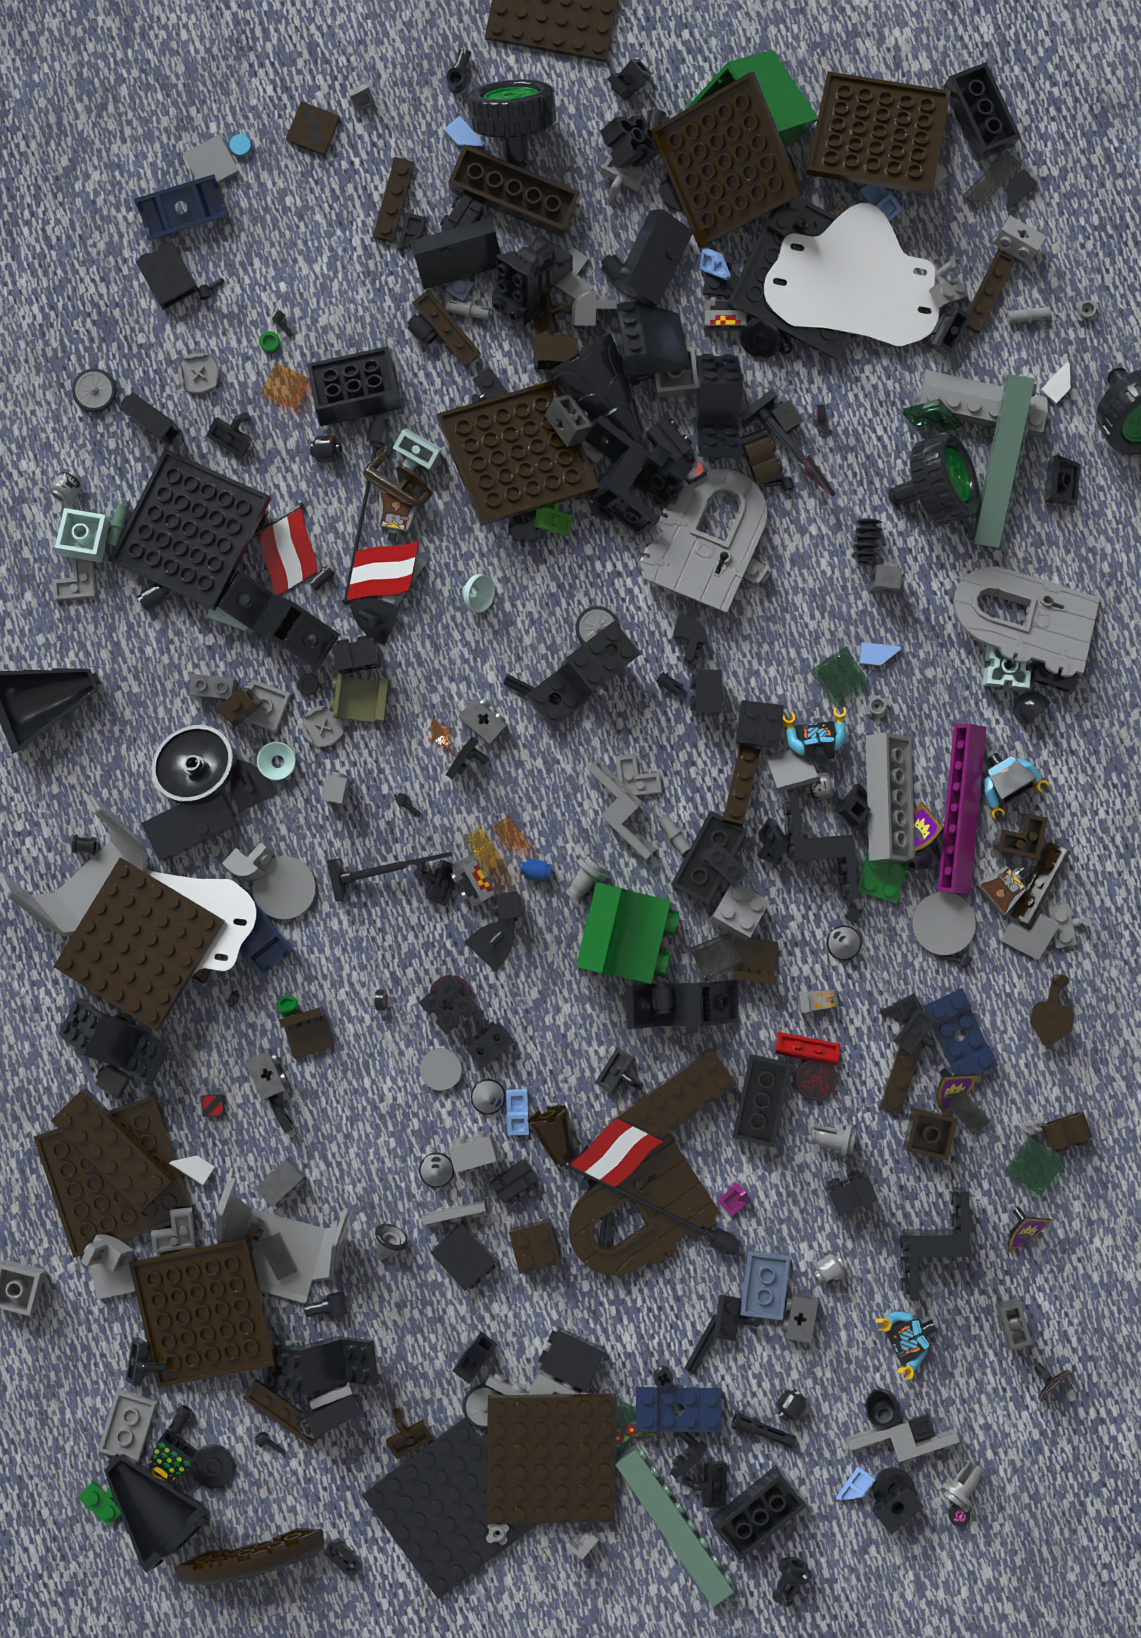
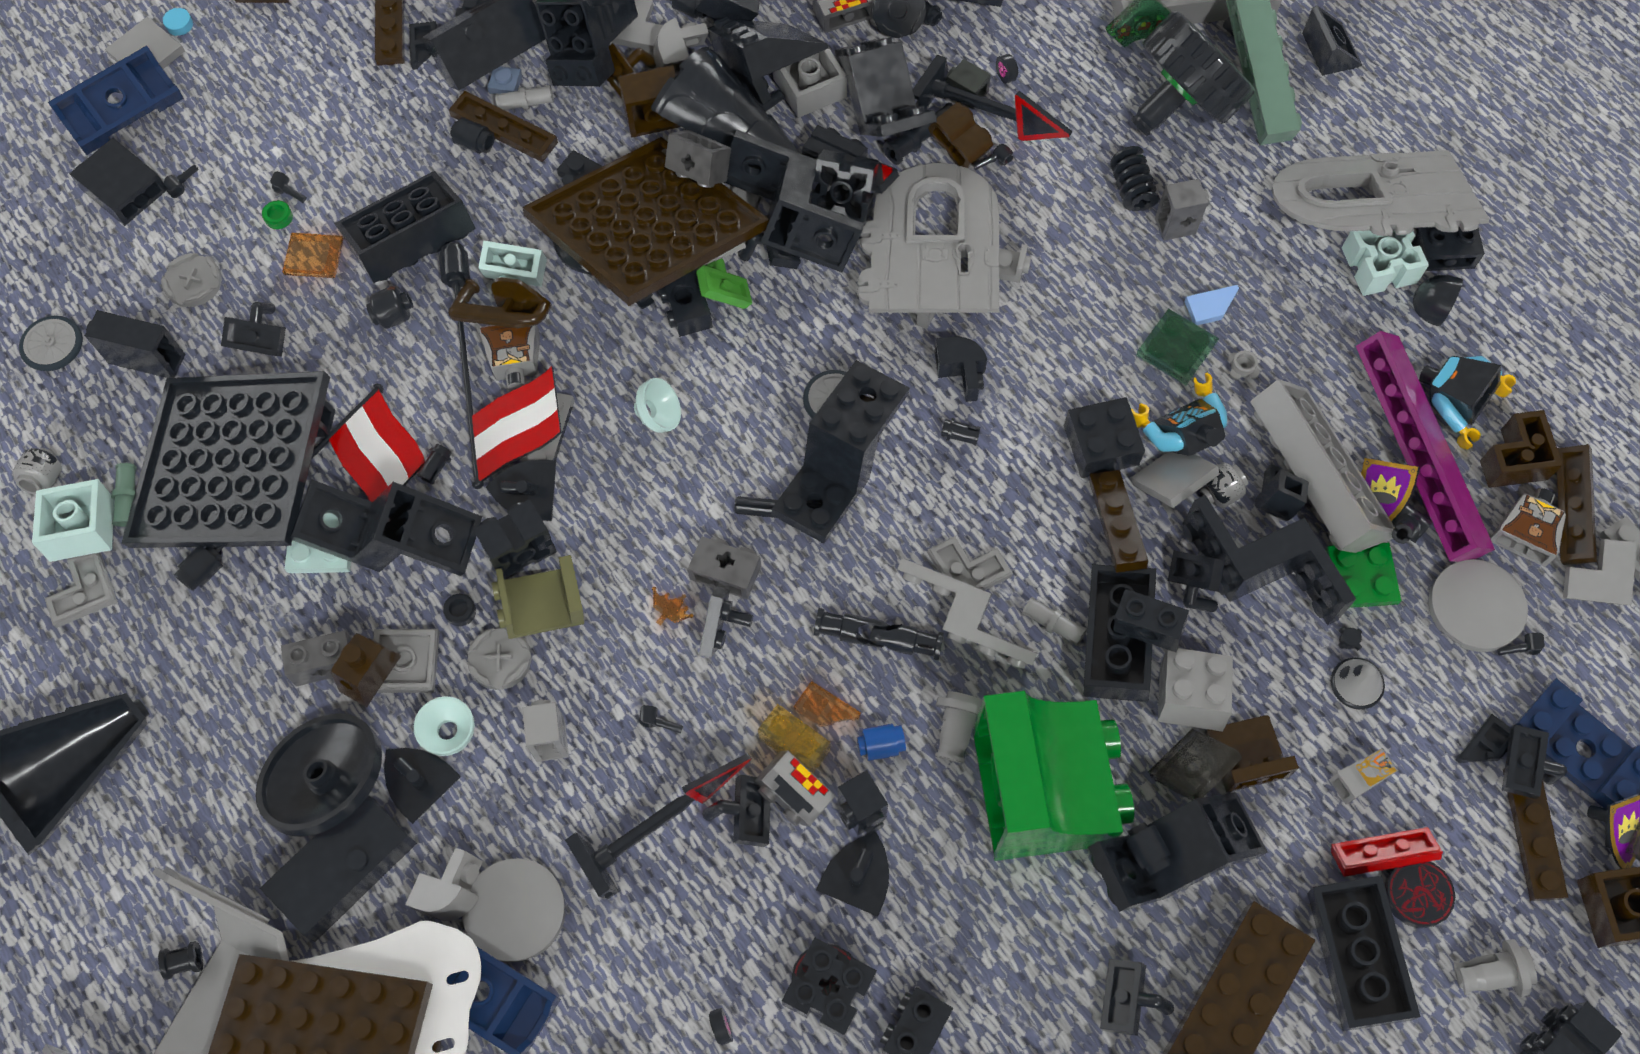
camera: 20 degrees left, 20 degrees down
(565, 803) = (898, 638): none -> black piece
(707, 692) = (1017, 418): black brick -> none

